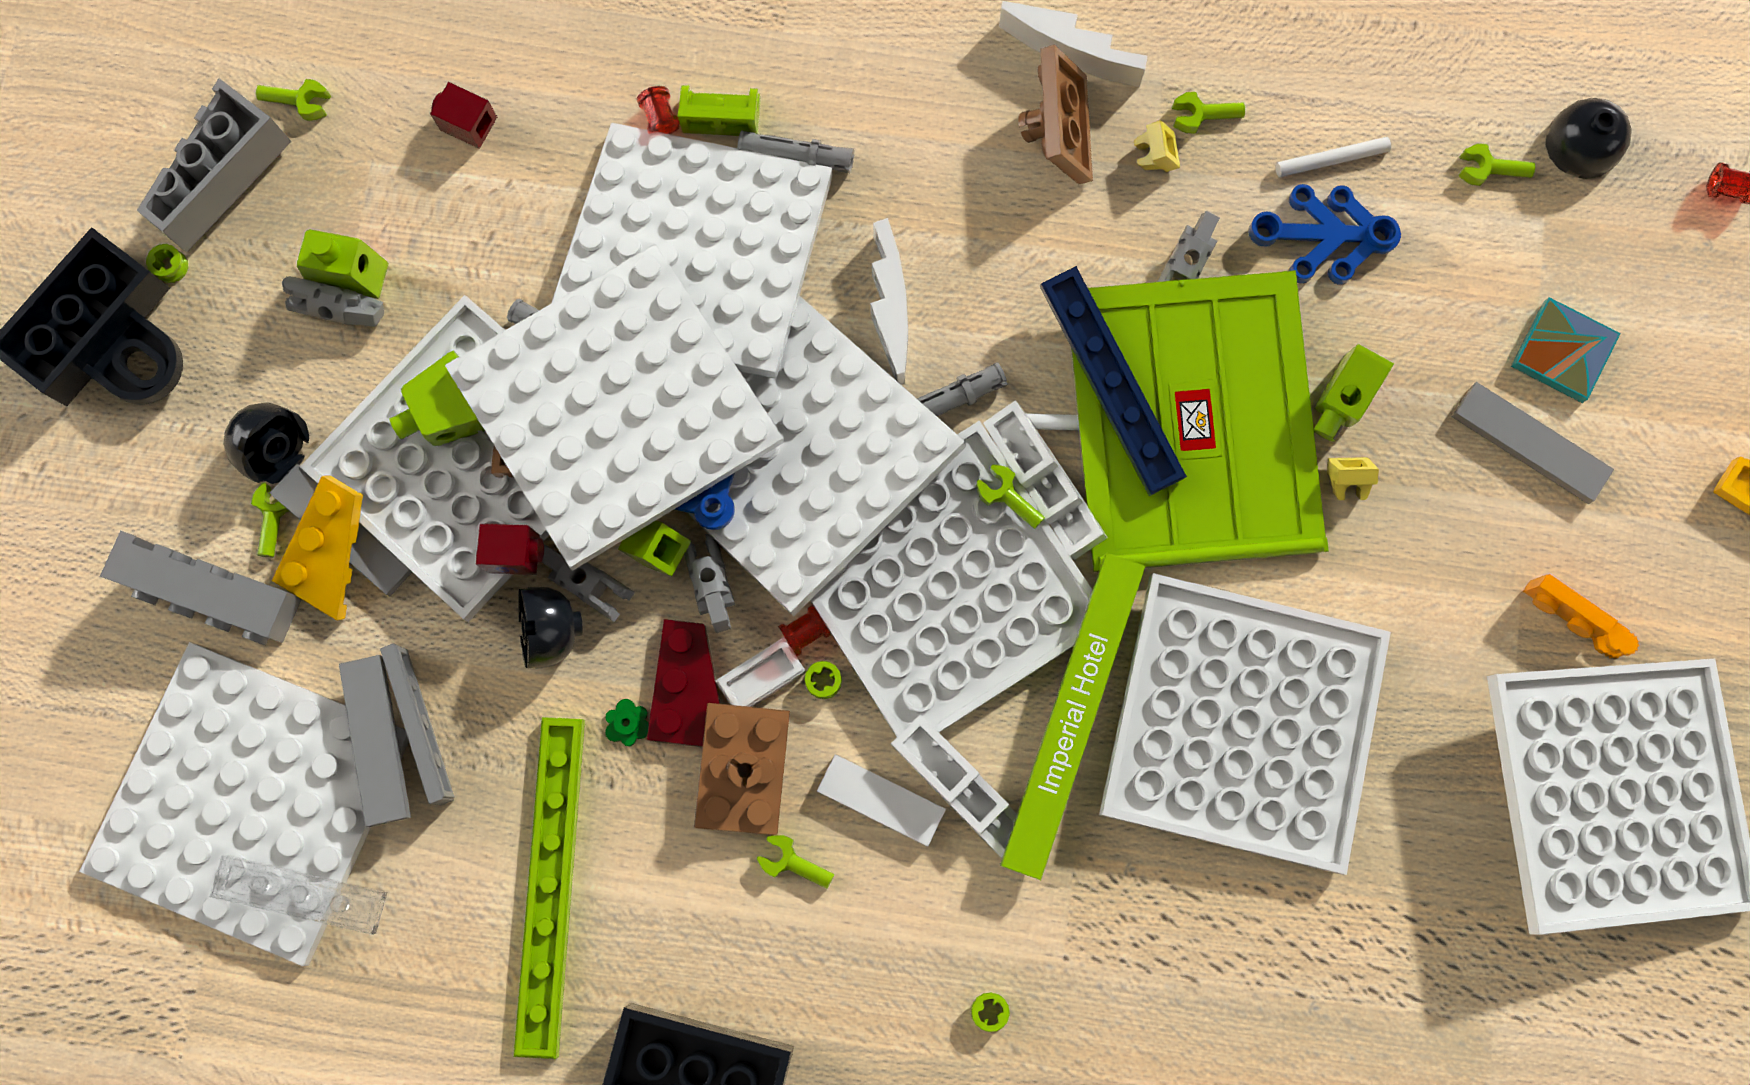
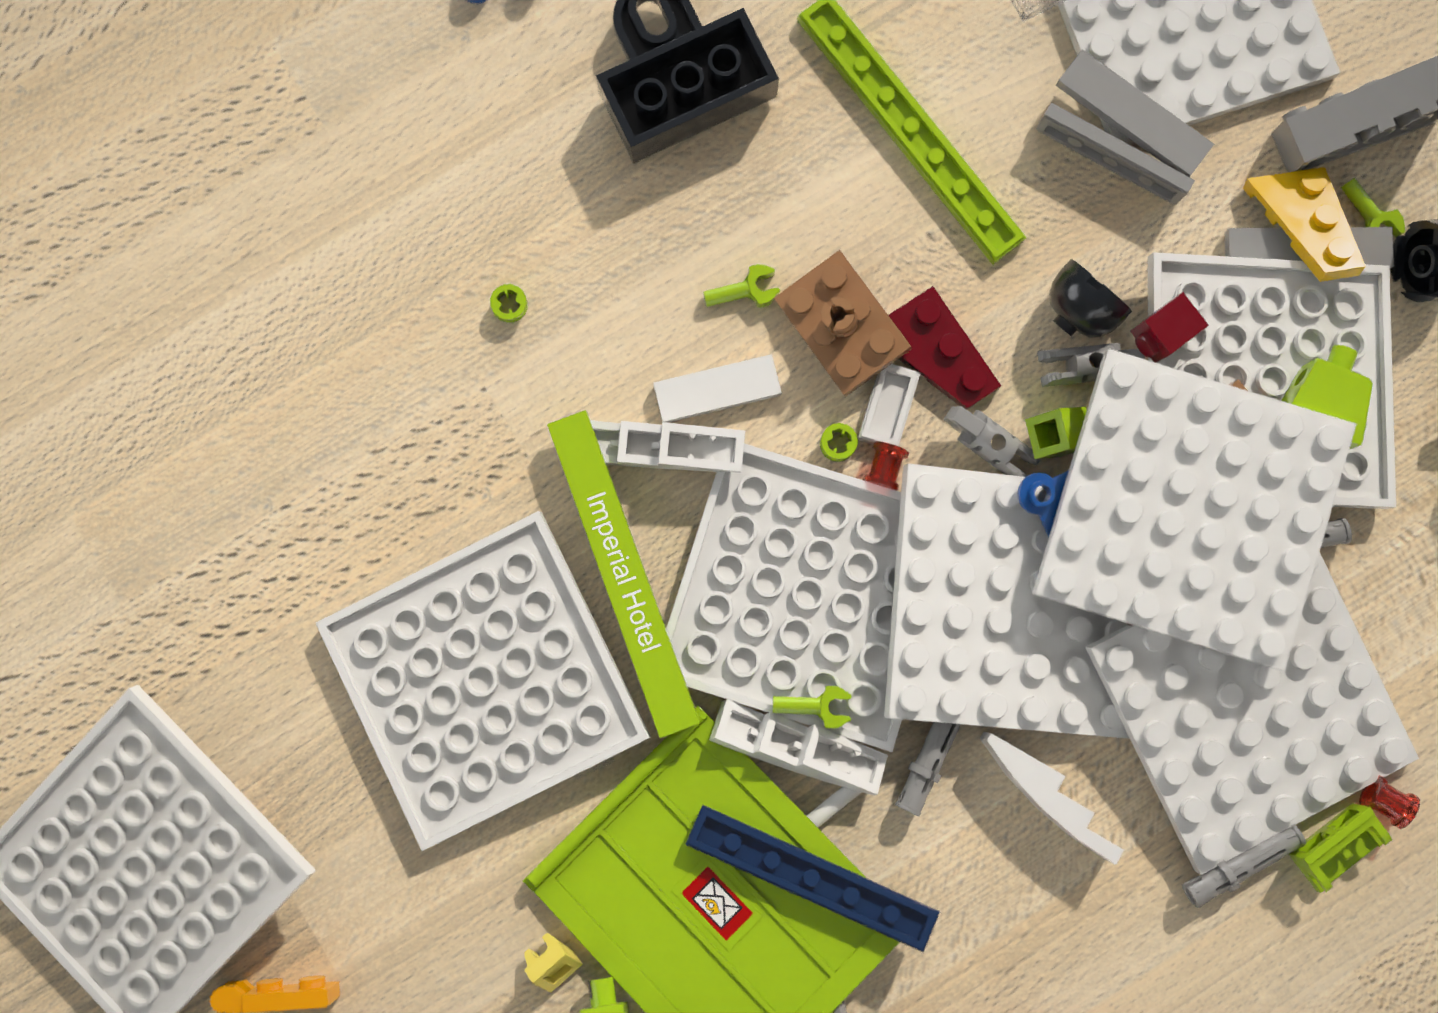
camera: 135 degrees right, 5 degrees up
(637, 727) = (952, 295): green plant -> none

